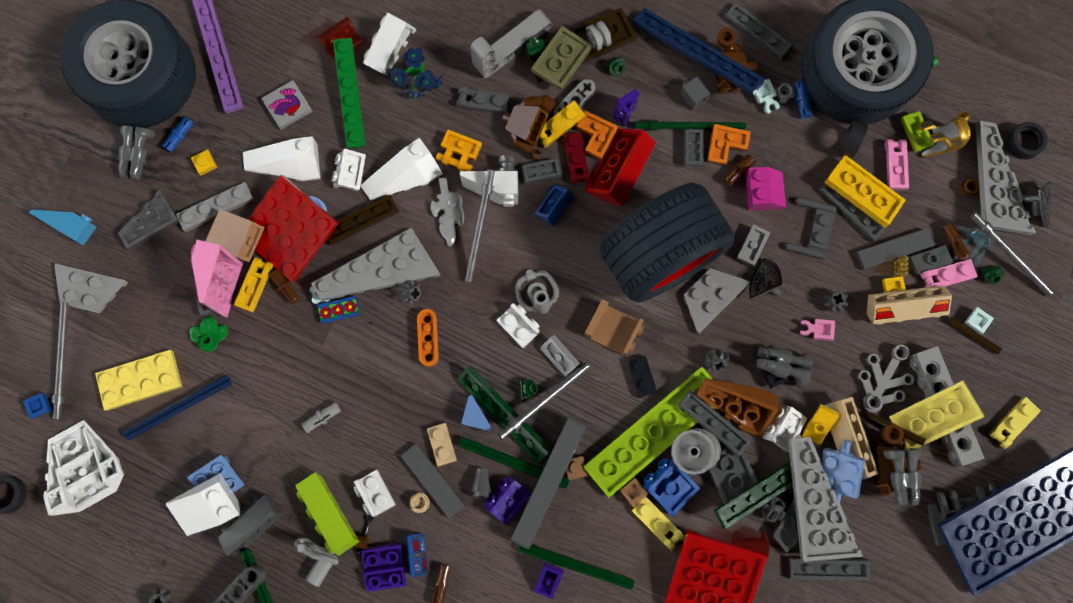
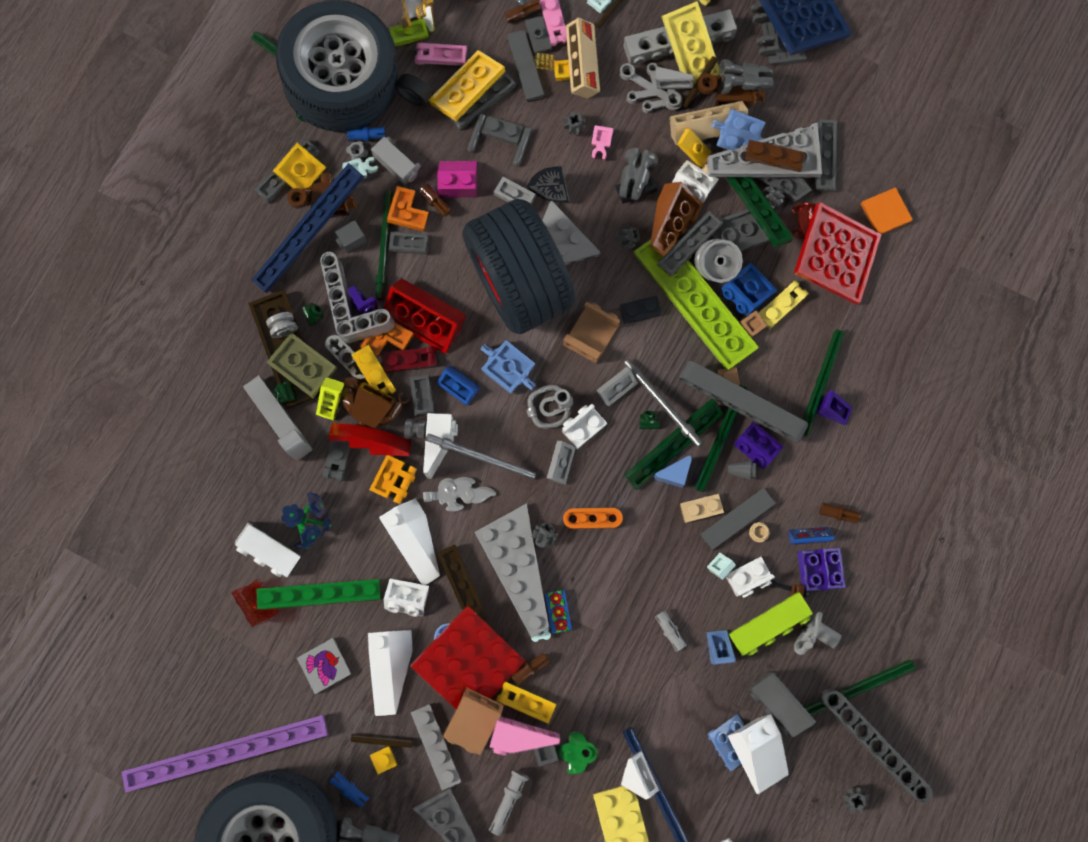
camera: 85 degrees left, 0 degrees up
(172, 276) = (512, 793): none -> light grey pin
(182, 389) = (639, 777): none -> white slope
(221, 159) = (379, 740): none -> dark brown bar
(304, 465) = (720, 647): none -> medium blue slope
(384, 464) = (721, 566): none -> light aqua plate
(481, 304) = (561, 462): none -> light grey plate
(494, 129) = (376, 440): none -> red slope
(534, 86) = (332, 388): none -> neon yellow slope
(573, 249) = (508, 367): none -> medium blue plate
(622, 86) = (344, 304): none -> light grey beam
(760, 40) = (299, 168): none -> yellow tile
(777, 128) = (395, 161): none -> light grey brick
(817, 508) = (774, 156): none -> reddish brown plate
(894, 398) = (673, 79): none -> light grey slope

